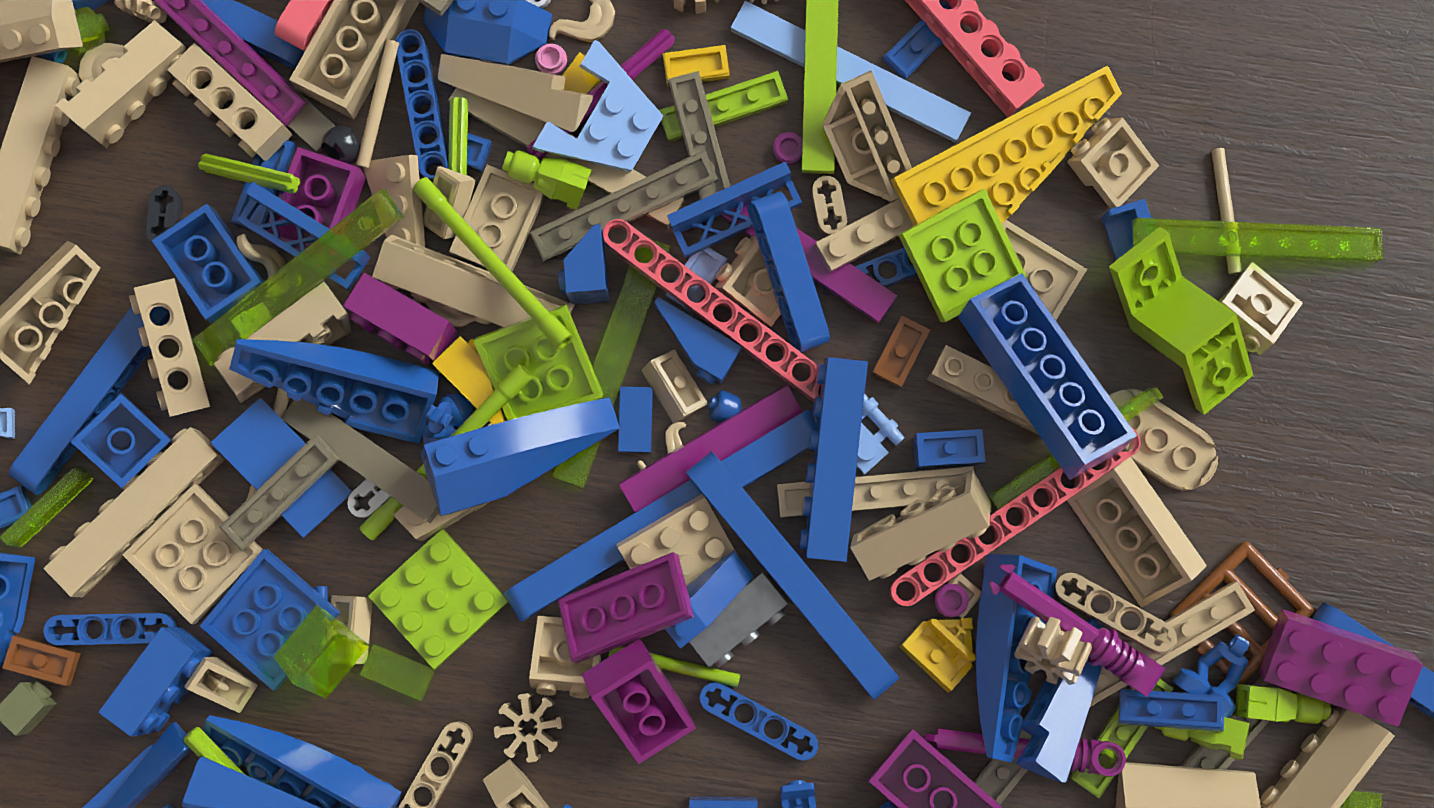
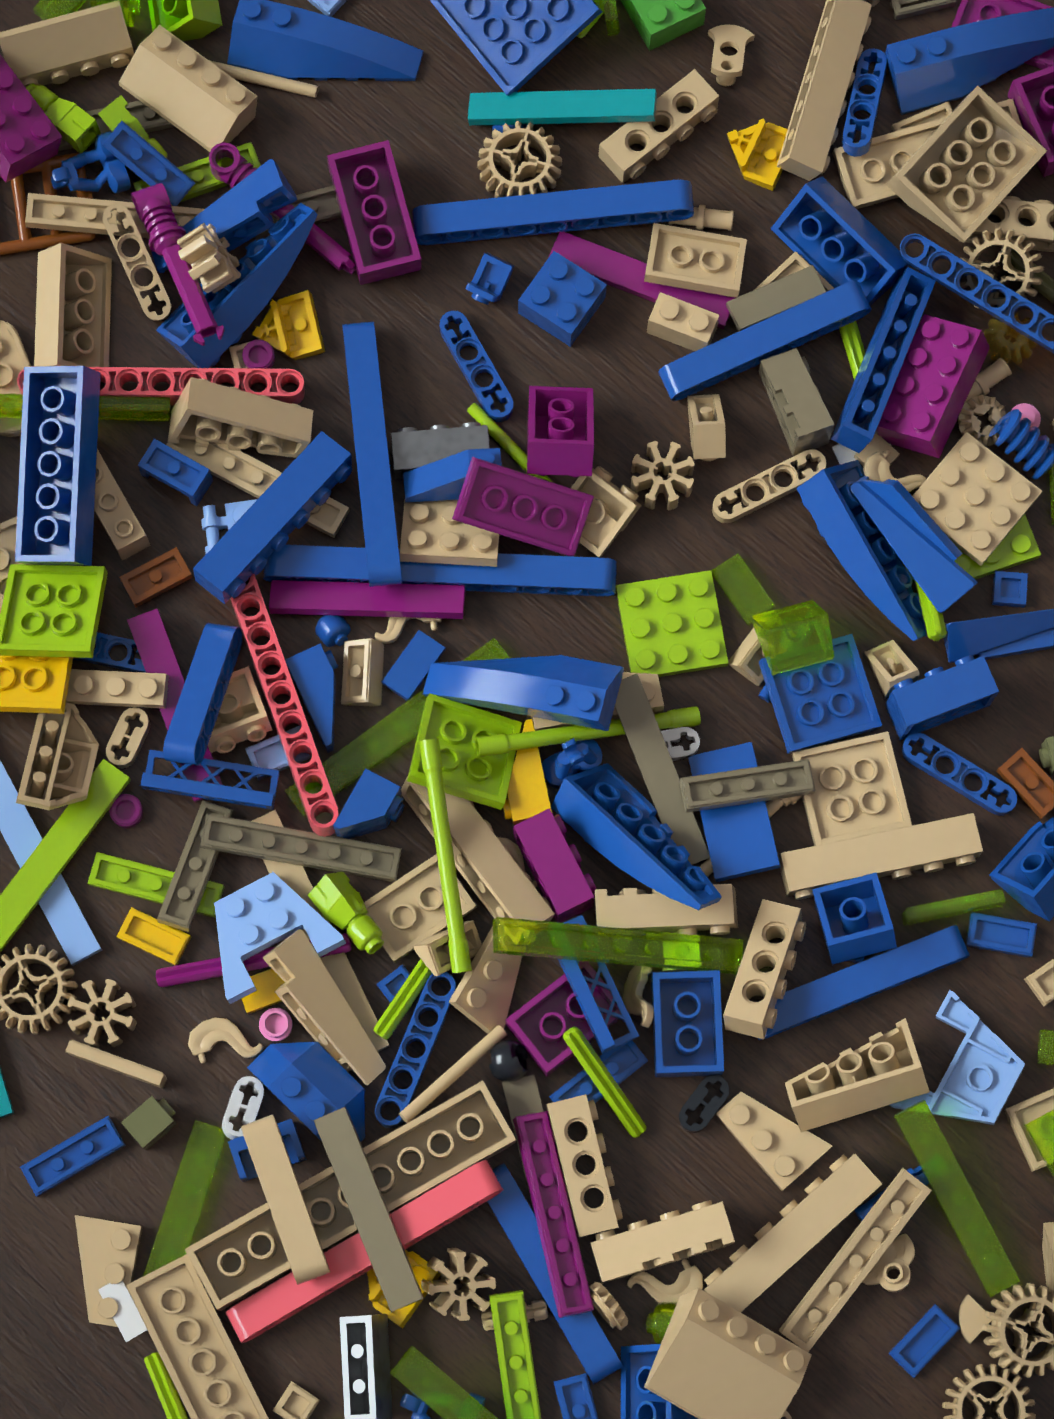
camera: 145 degrees left, 5 degrees down
(91, 224) = (771, 1139): none -> tan wing

